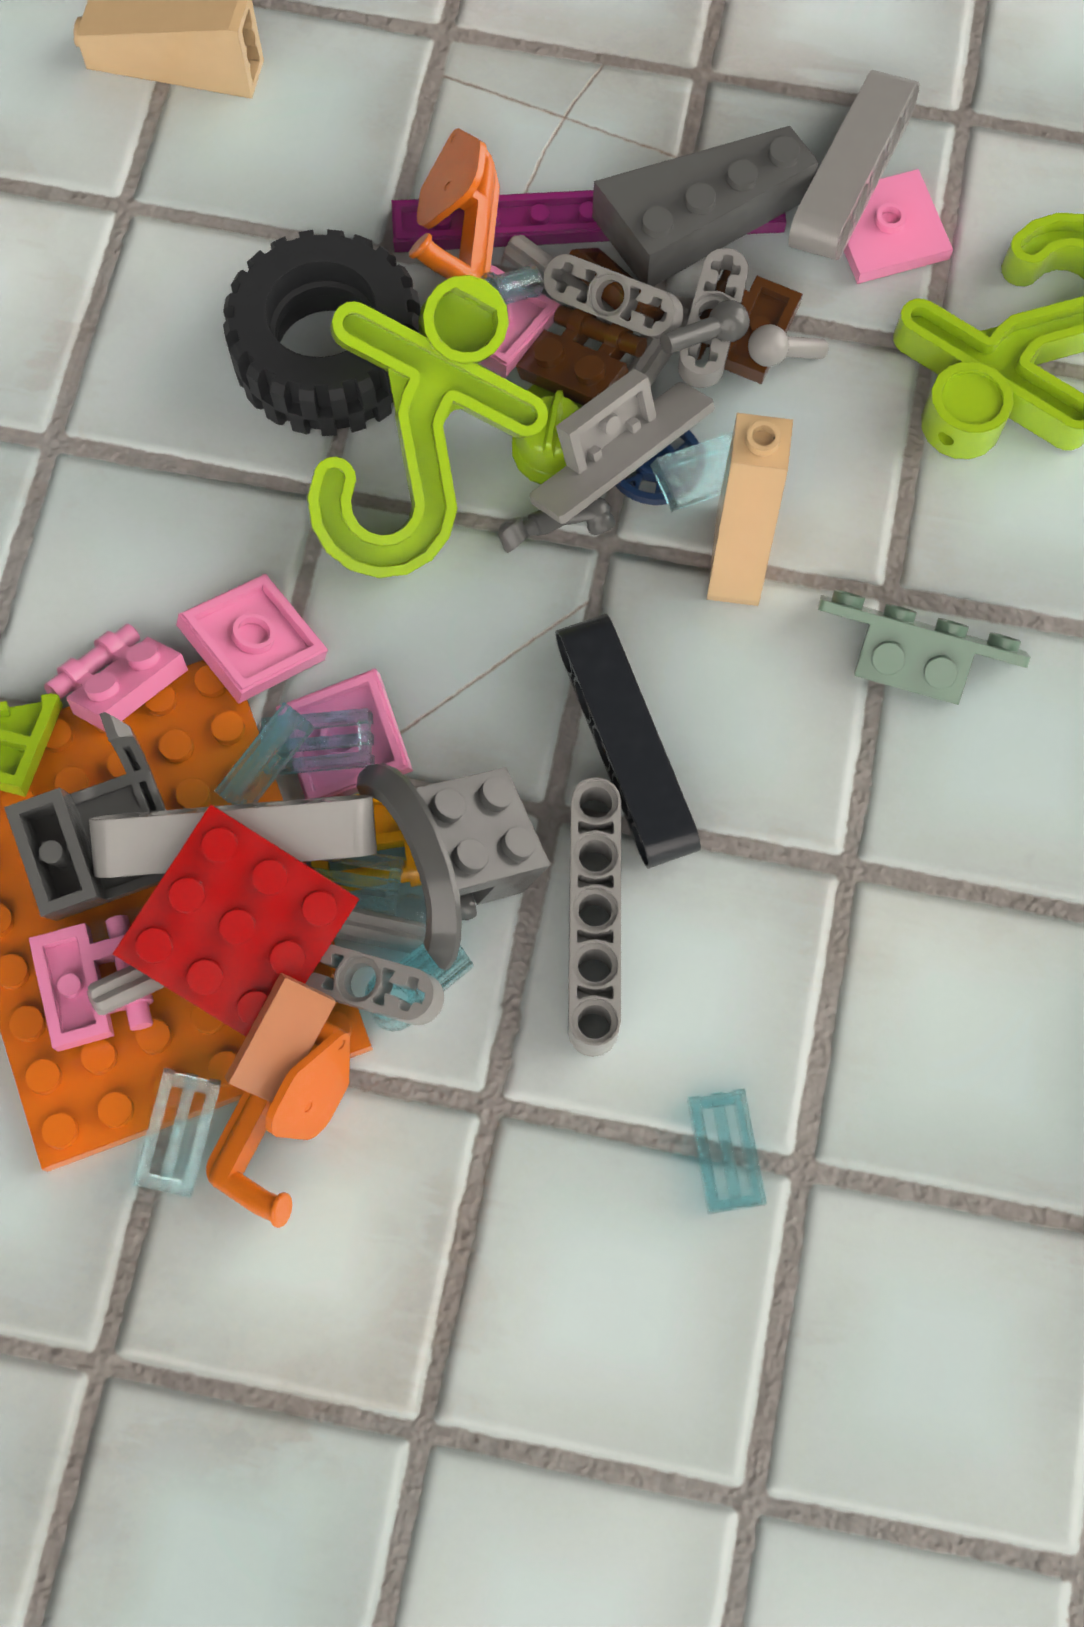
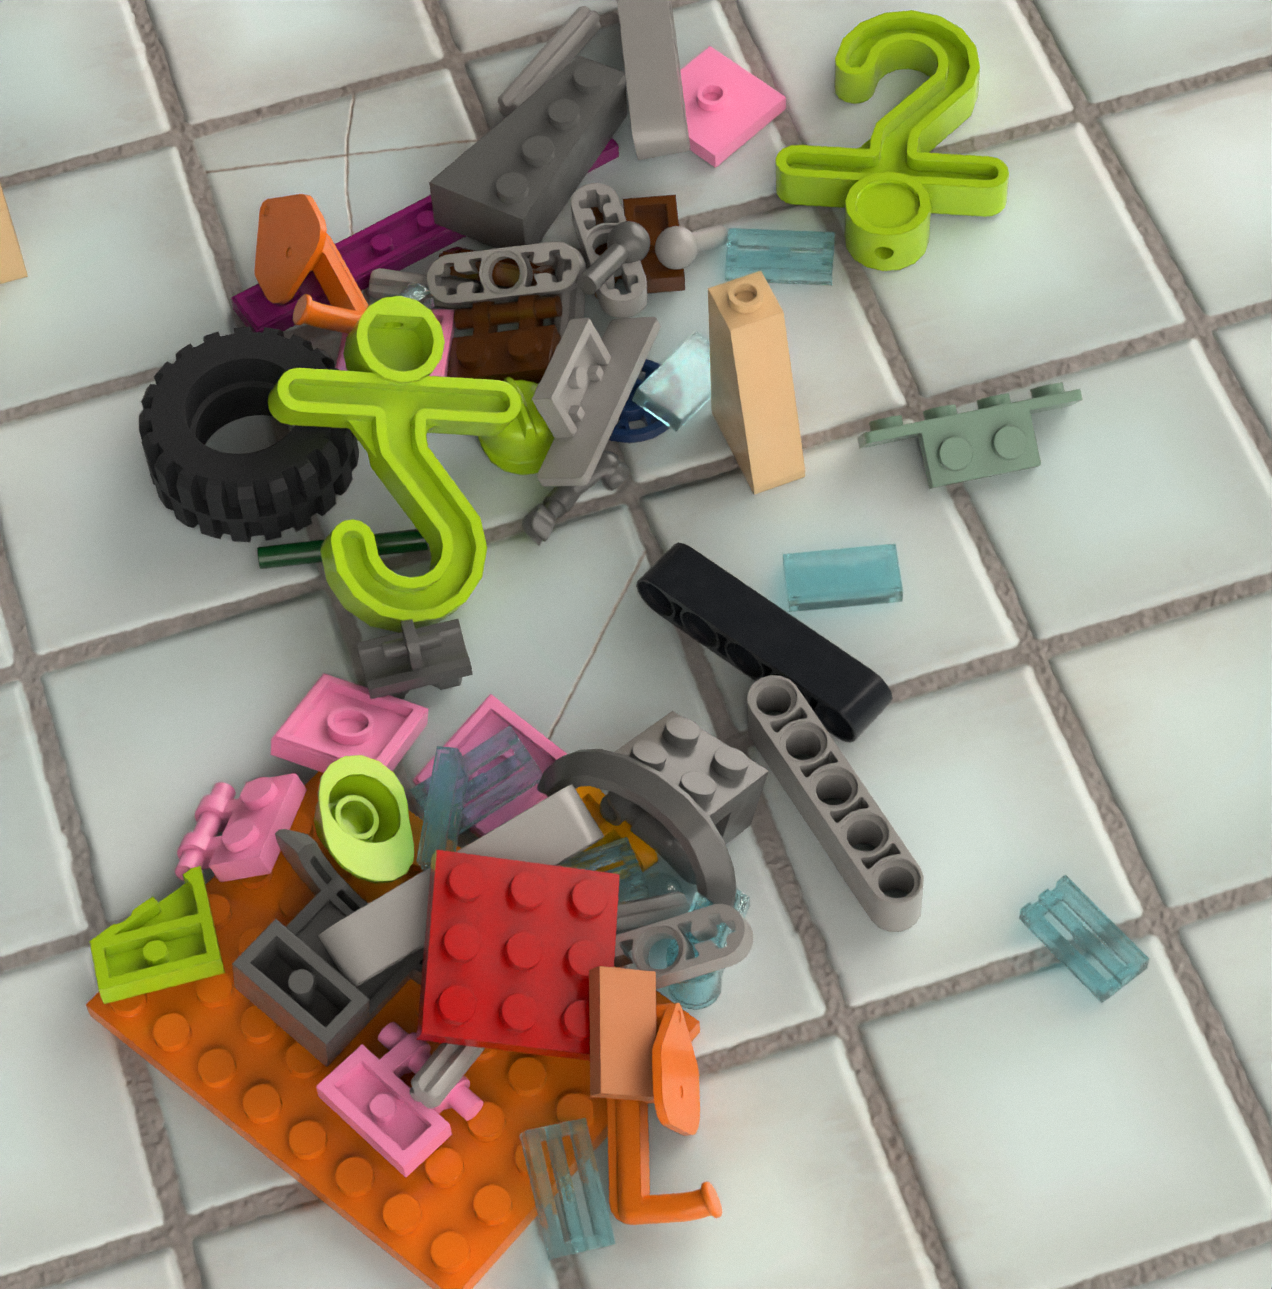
camera: 25 degrees left, 15 degrees down
(198, 732) = (365, 819): none -> lime piece
(337, 602) = (415, 659): none -> dark grey hips
(365, 476) = (309, 551): none -> dark green bar
(730, 715) = (842, 577): none -> clear light blue tile
(781, 113) = (551, 58): none -> light grey axle
(854, 400) = (780, 263): none -> clear light blue tile

